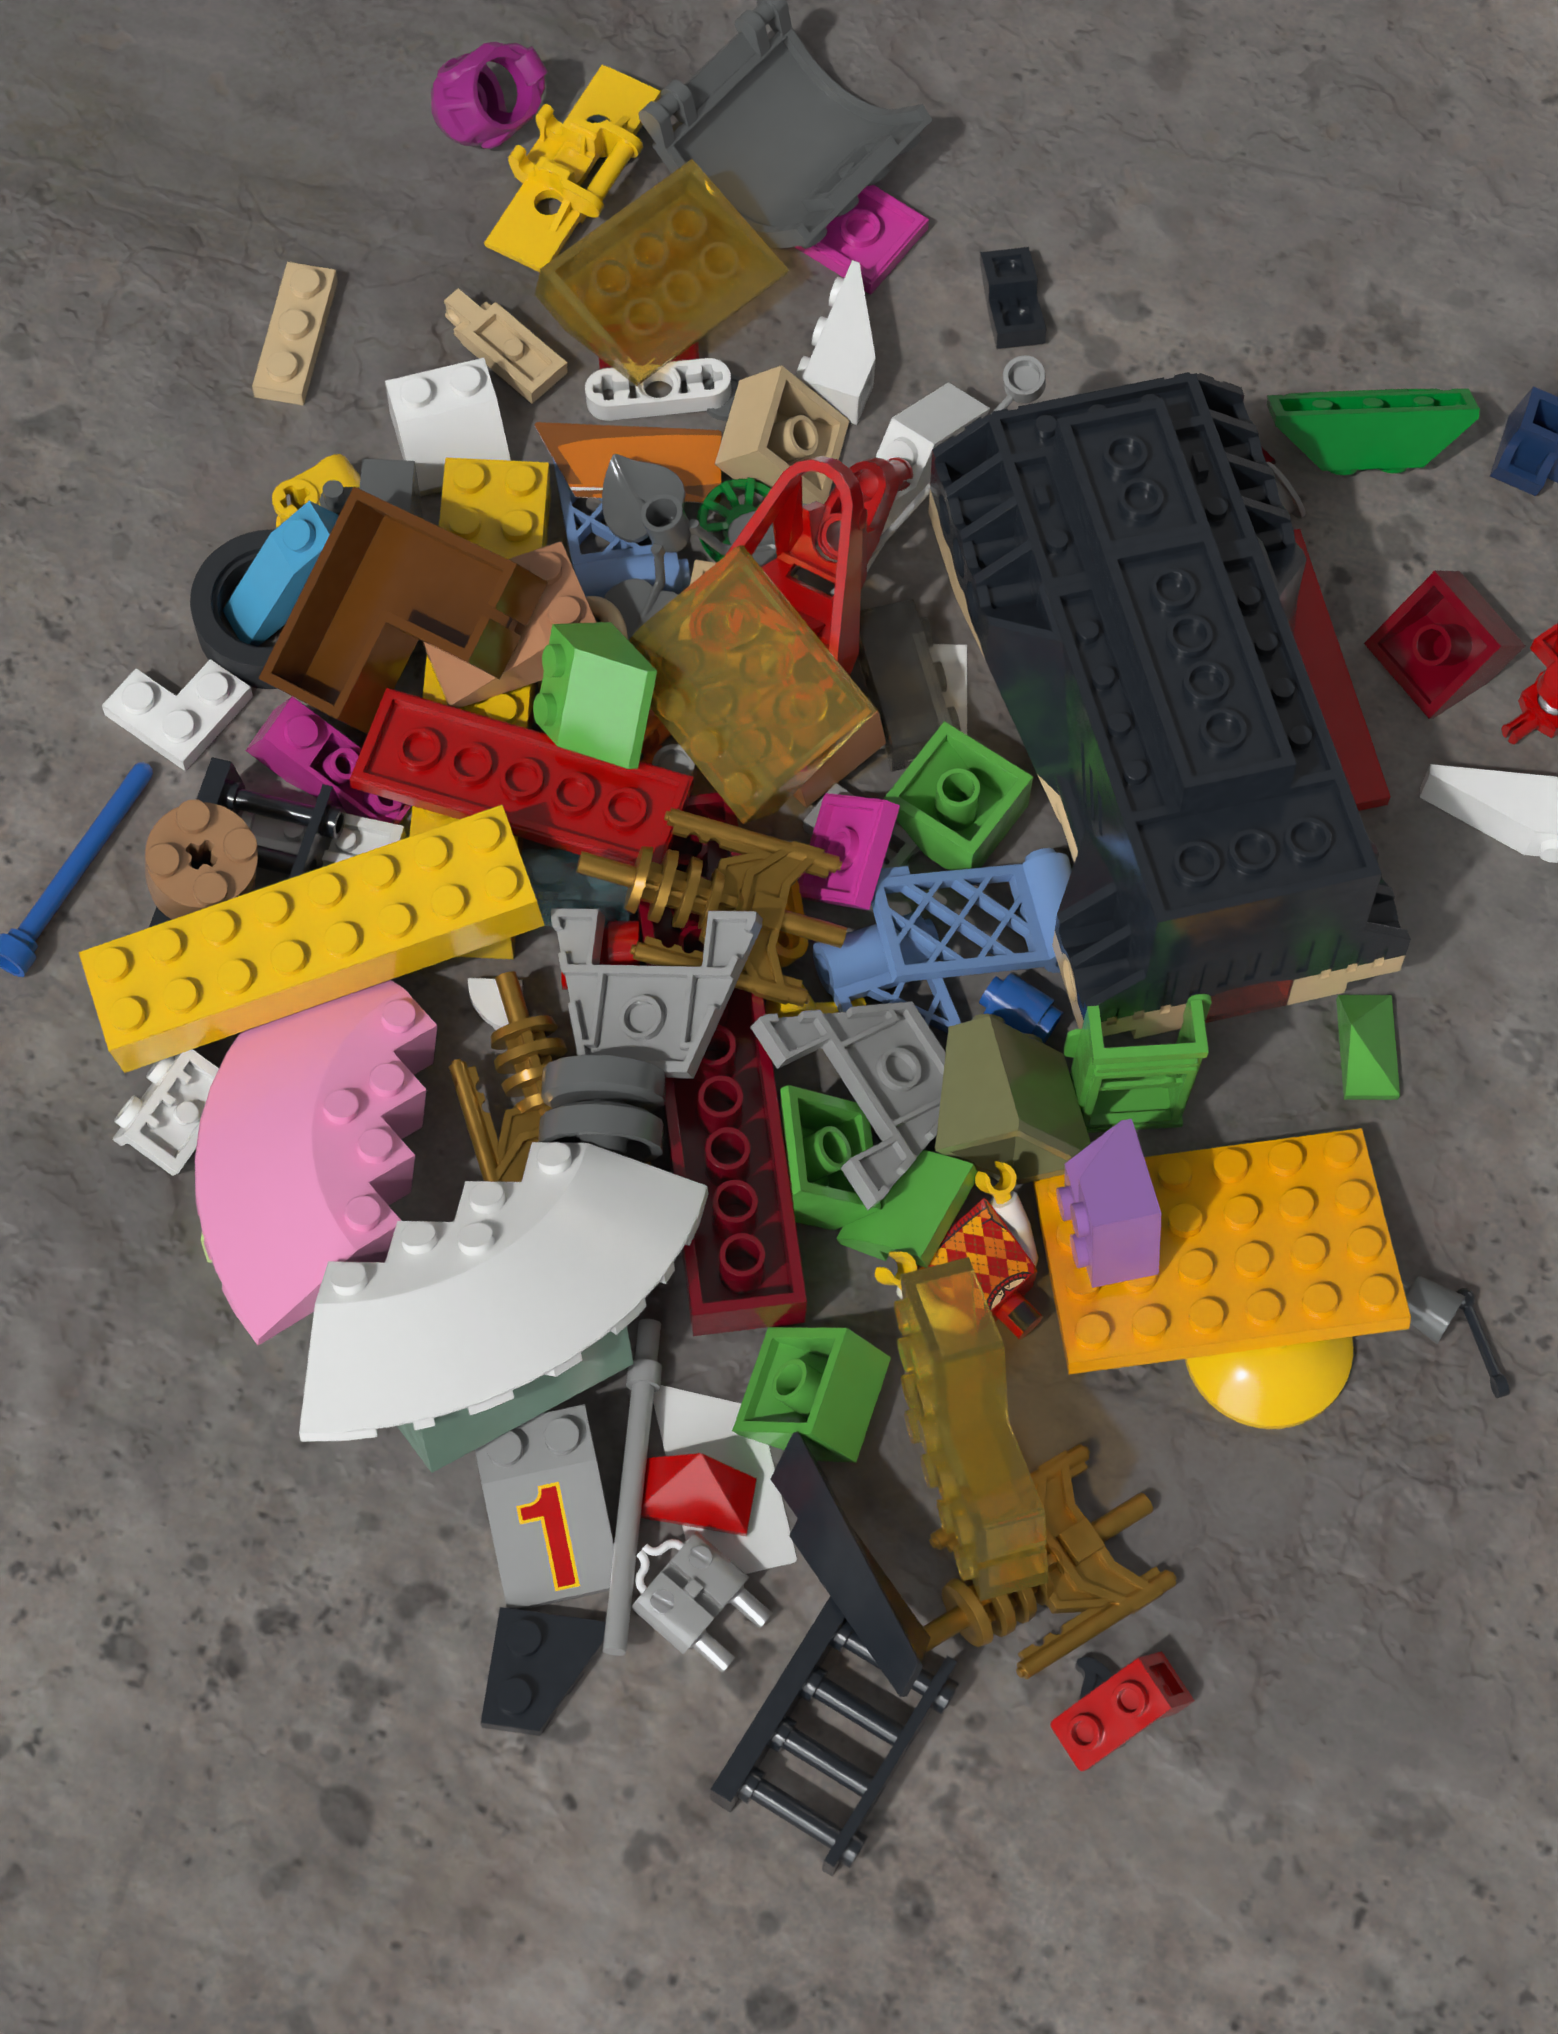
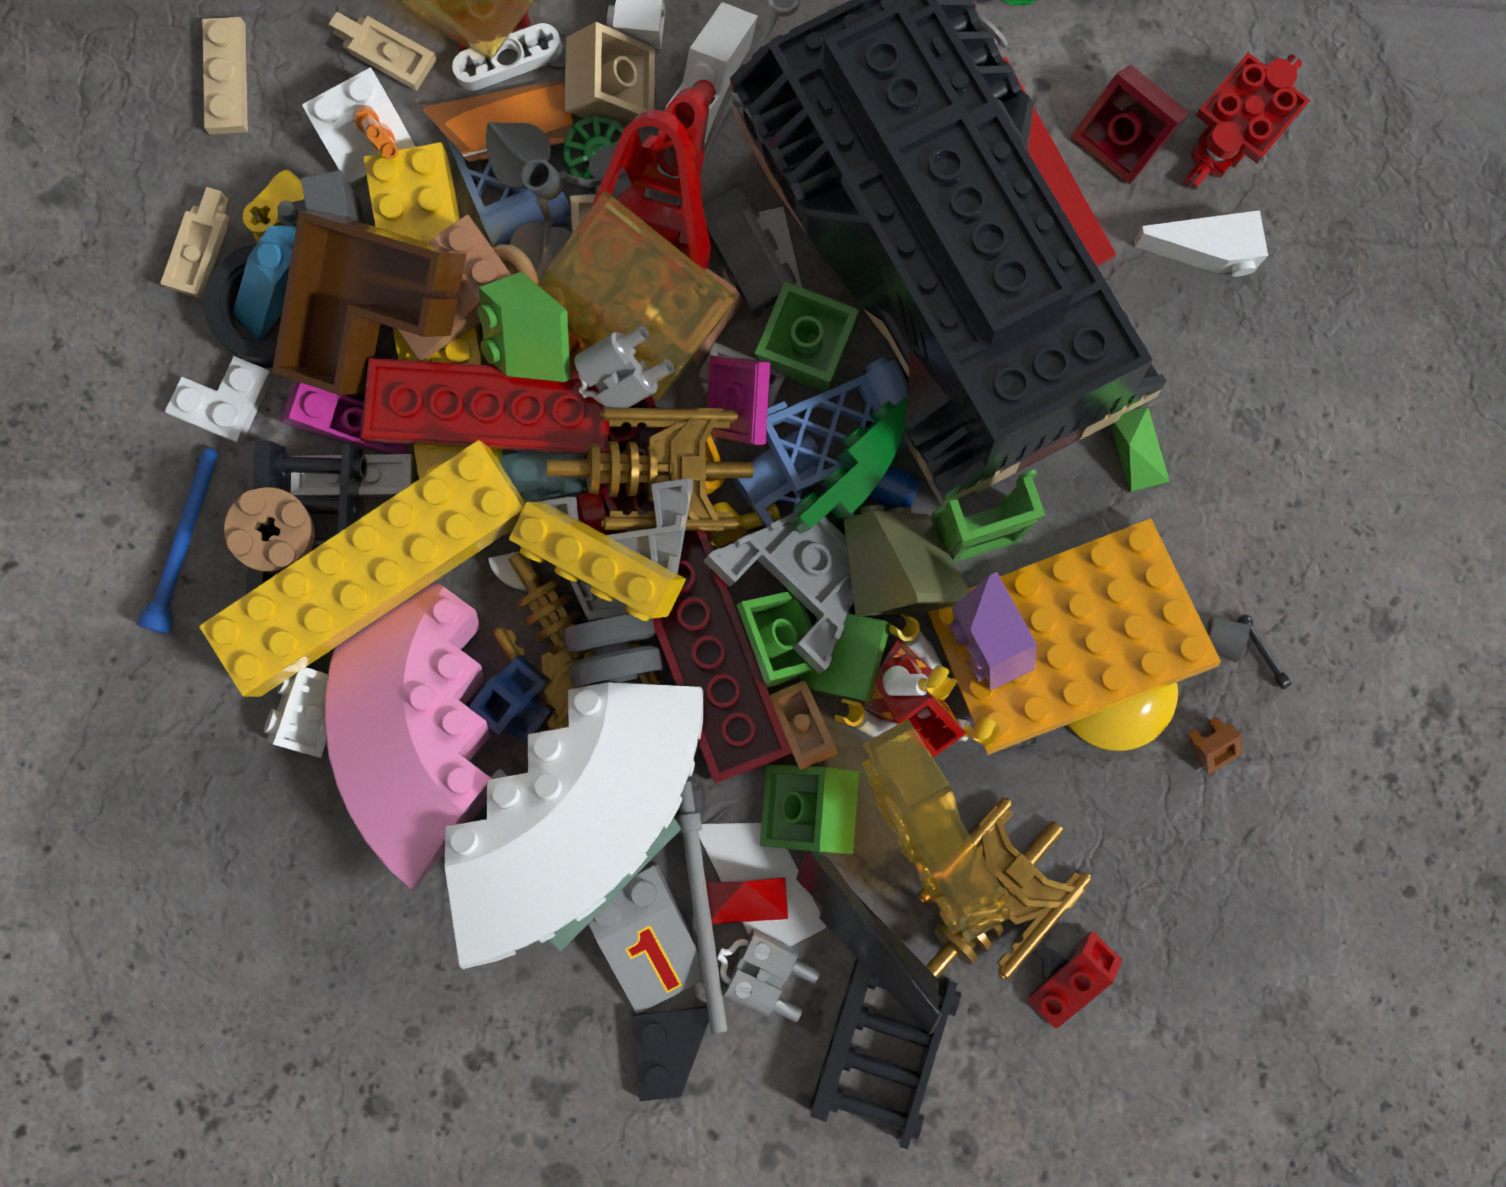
camera: 10 degrees left, 15 degrees up
(202, 520) = (197, 245): none -> tan hinge
(456, 1147) = (513, 700): none -> dark blue brick
(472, 438) = (378, 133): none -> orange piece
(616, 986) = (597, 560): none -> yellow brick
(699, 768) = (616, 371): none -> light grey piece
(831, 1277) = (803, 725): none -> medium nougat slope
(980, 970) = (865, 460): none -> green slope
(984, 1238) = (923, 702): none -> torso
(1389, 1446) = (1218, 748): none -> dark orange tile

